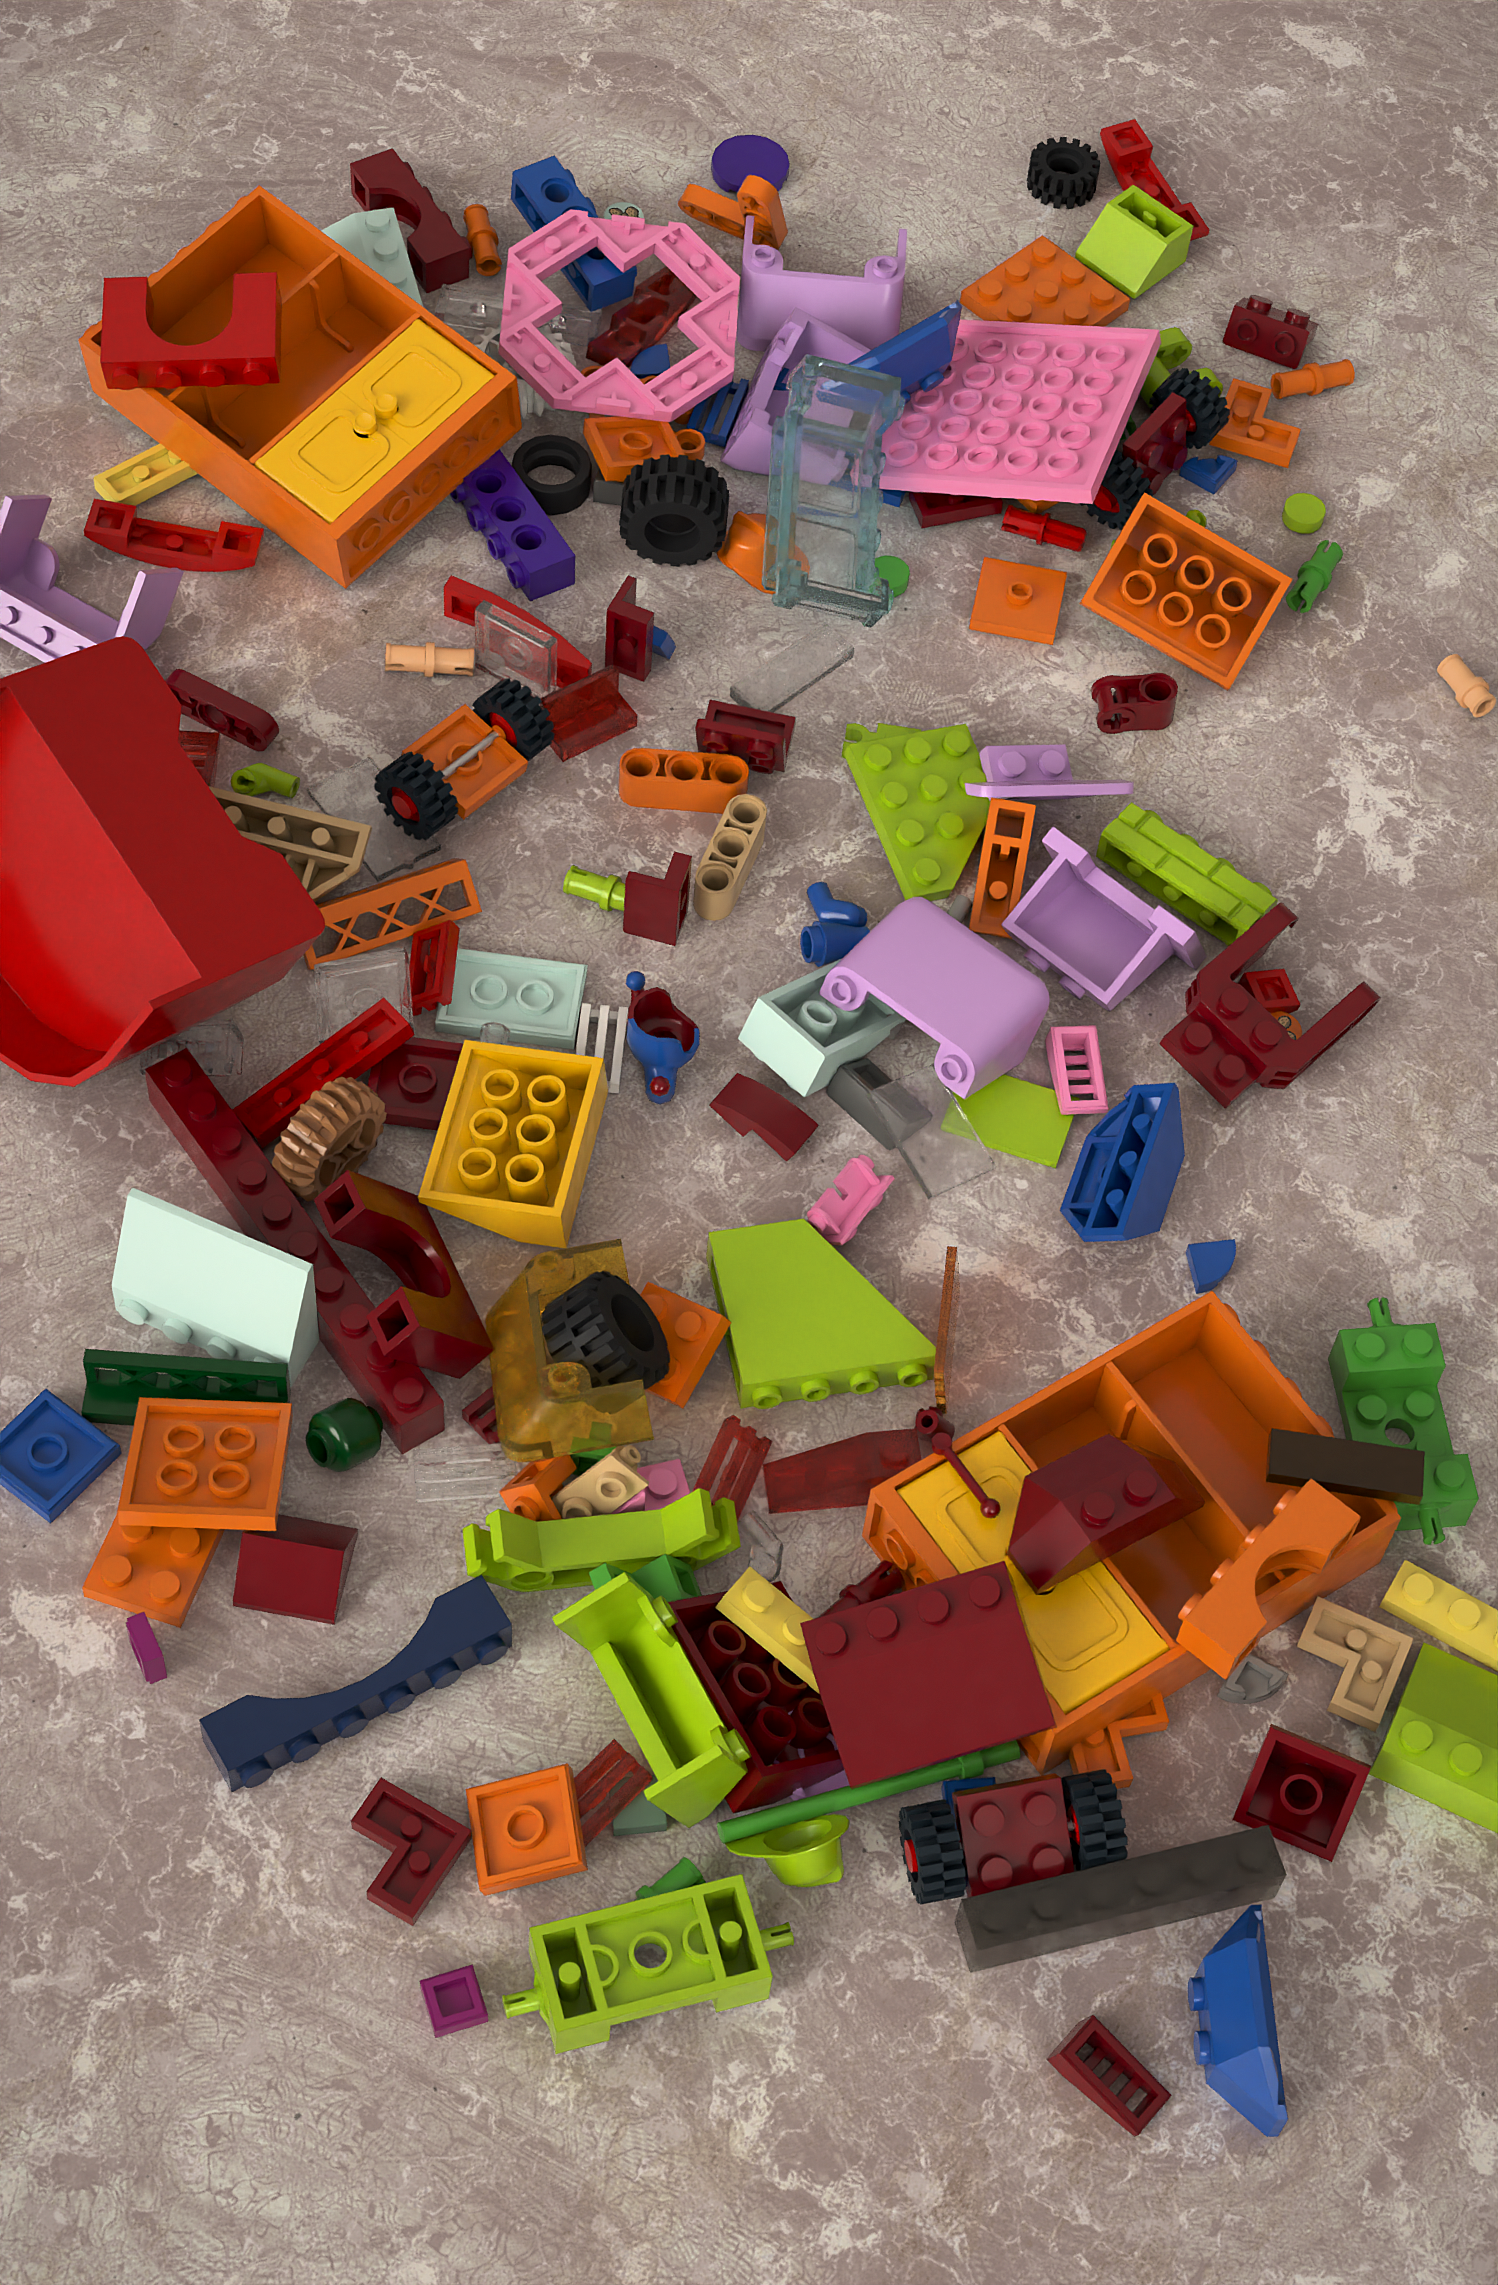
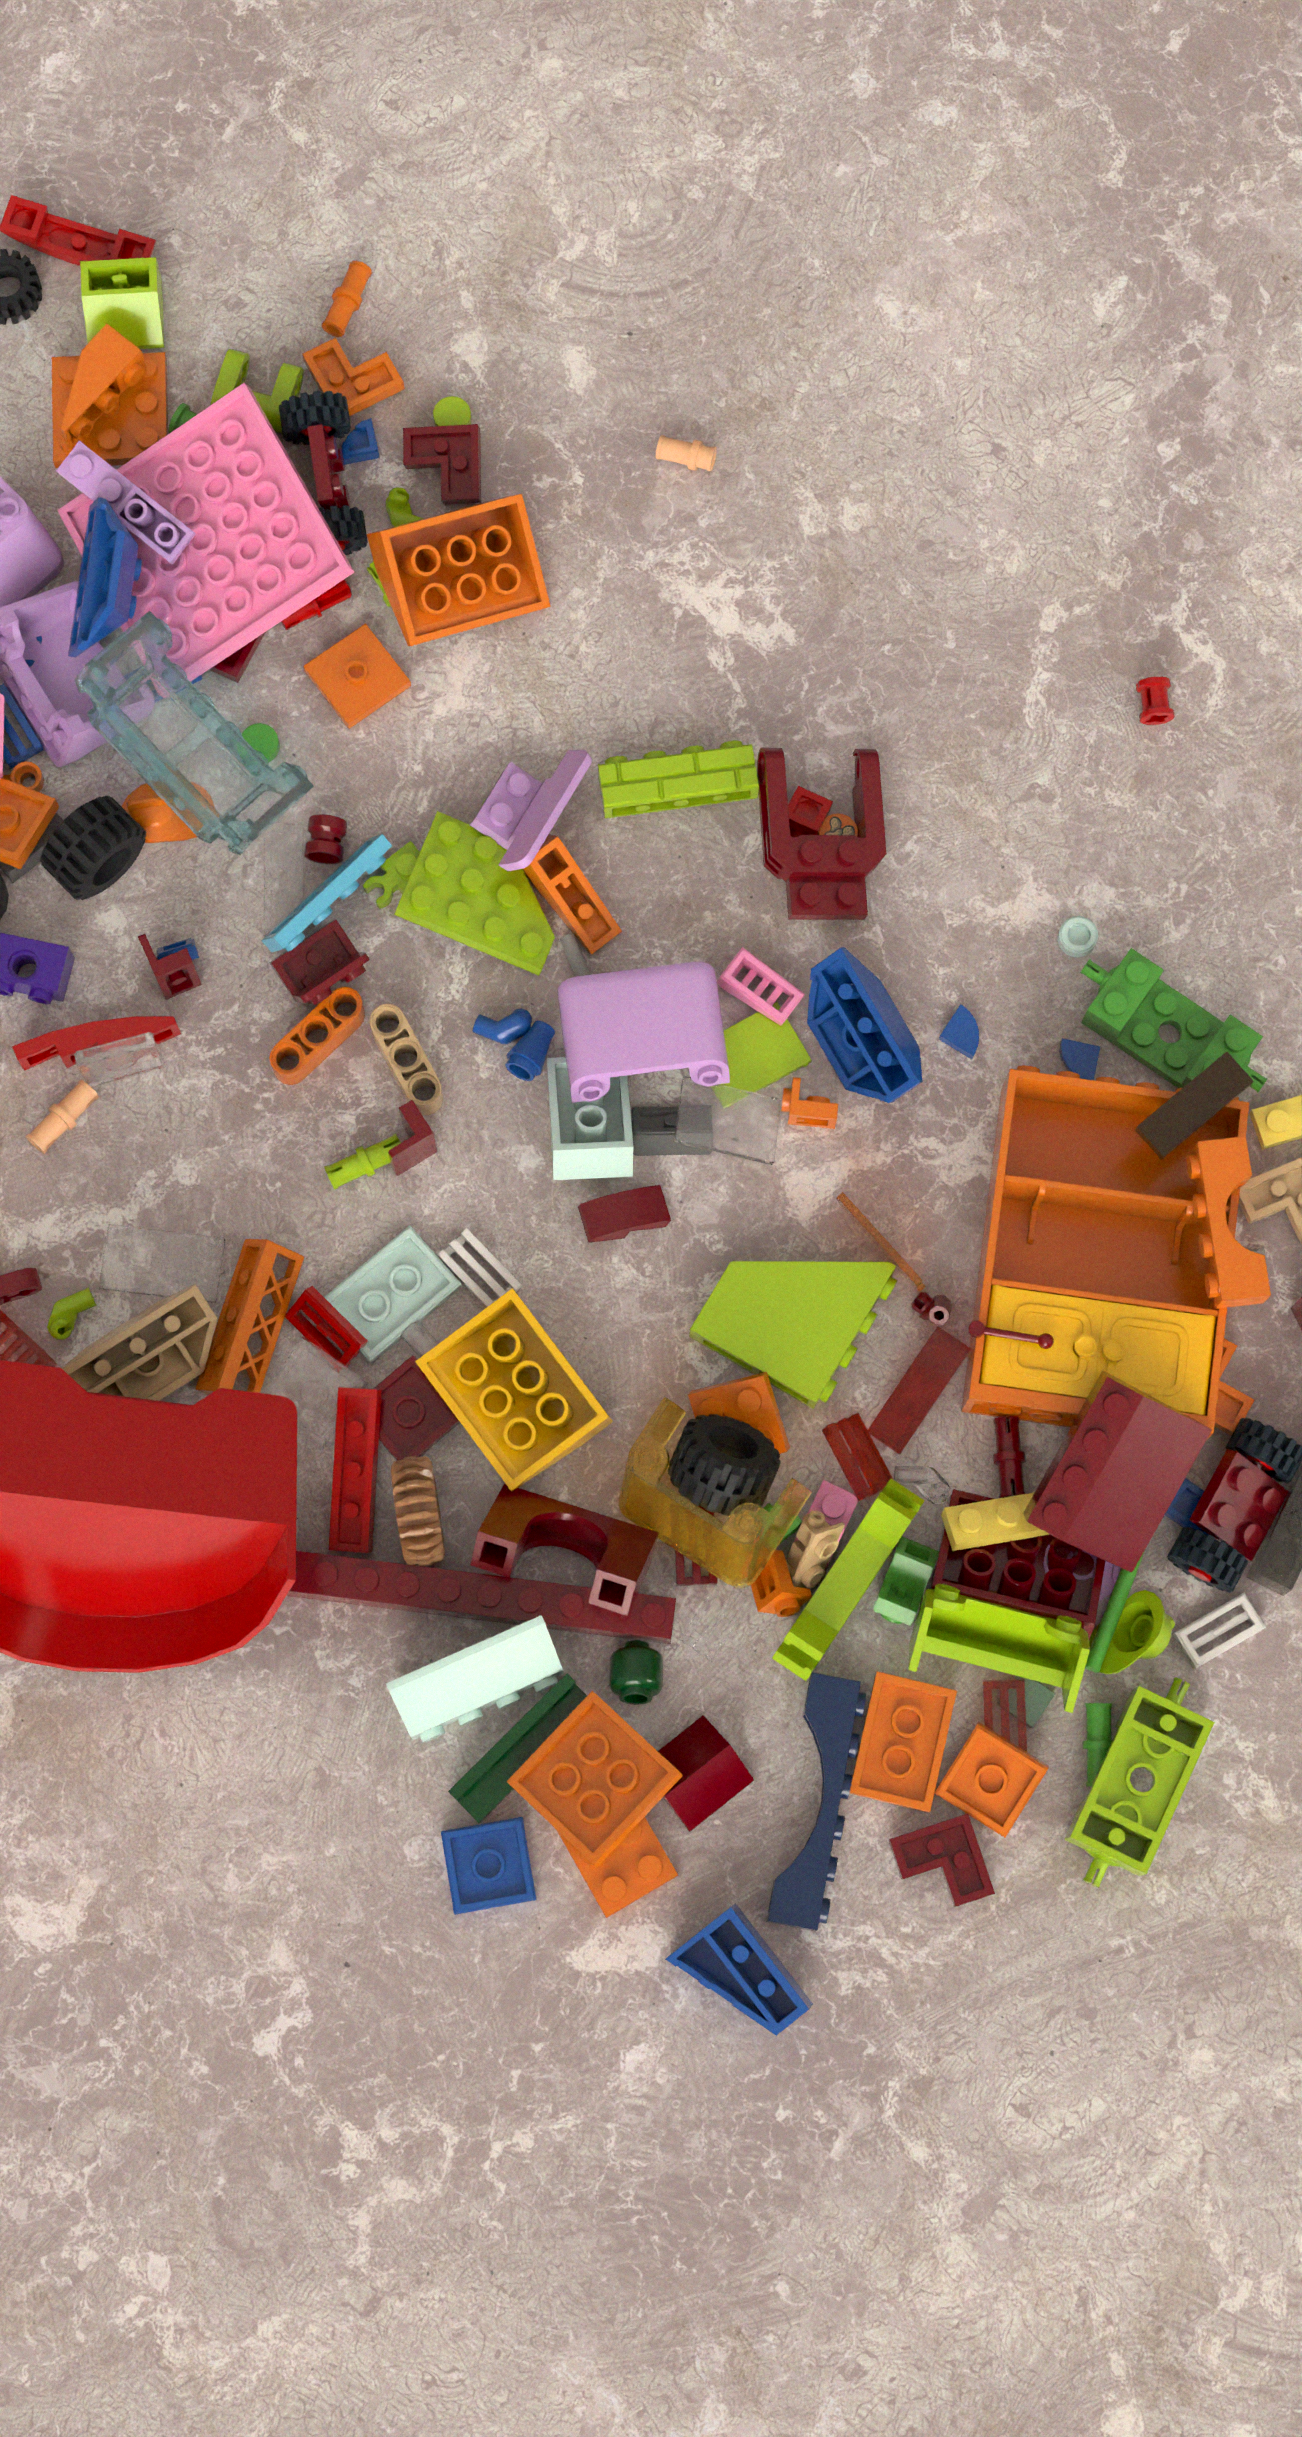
camera: 45 degrees left, 20 degrees up
(132, 1738) = (743, 1970): none -> blue wedge
(146, 1648) = (683, 1911): magenta tile -> none
(453, 2001) = (1058, 1907): magenta tile -> none
(464, 759) = (181, 1169): plate -> none
(489, 1720) = (902, 1742): none -> orange plate
(588, 713) = (206, 1052): clear red panel -> none
(658, 1037) = (513, 1231): piece -> none
(794, 695) = (338, 884): none -> medium azure plate
(857, 669) = (325, 839): none -> dark red wheel
(861, 1191) = (739, 1225): bright pink hinge -> none
(866, 1952) = (1189, 1648): none -> white tile
(977, 331) = (132, 505): none -> lavender slope
(1008, 1189) = (812, 1112): none -> orange bracket
(1052, 263) = (102, 374): none -> orange slope
(1094, 1508) = (1101, 1281): dark red wedge -> none
(1095, 928) = (671, 878): lavender windscreen -> none
(1137, 702) = (508, 689): dark red piece -> none
(1269, 331) = (279, 284): dark red bracket -> none
(1271, 524) = (452, 449): none -> dark red plate
(1294, 1366) = (1079, 1057): none -> blue tile
(1314, 576) = (512, 461): bright green pin -> none
(1403, 1290) = (1077, 936): none -> light aqua tile

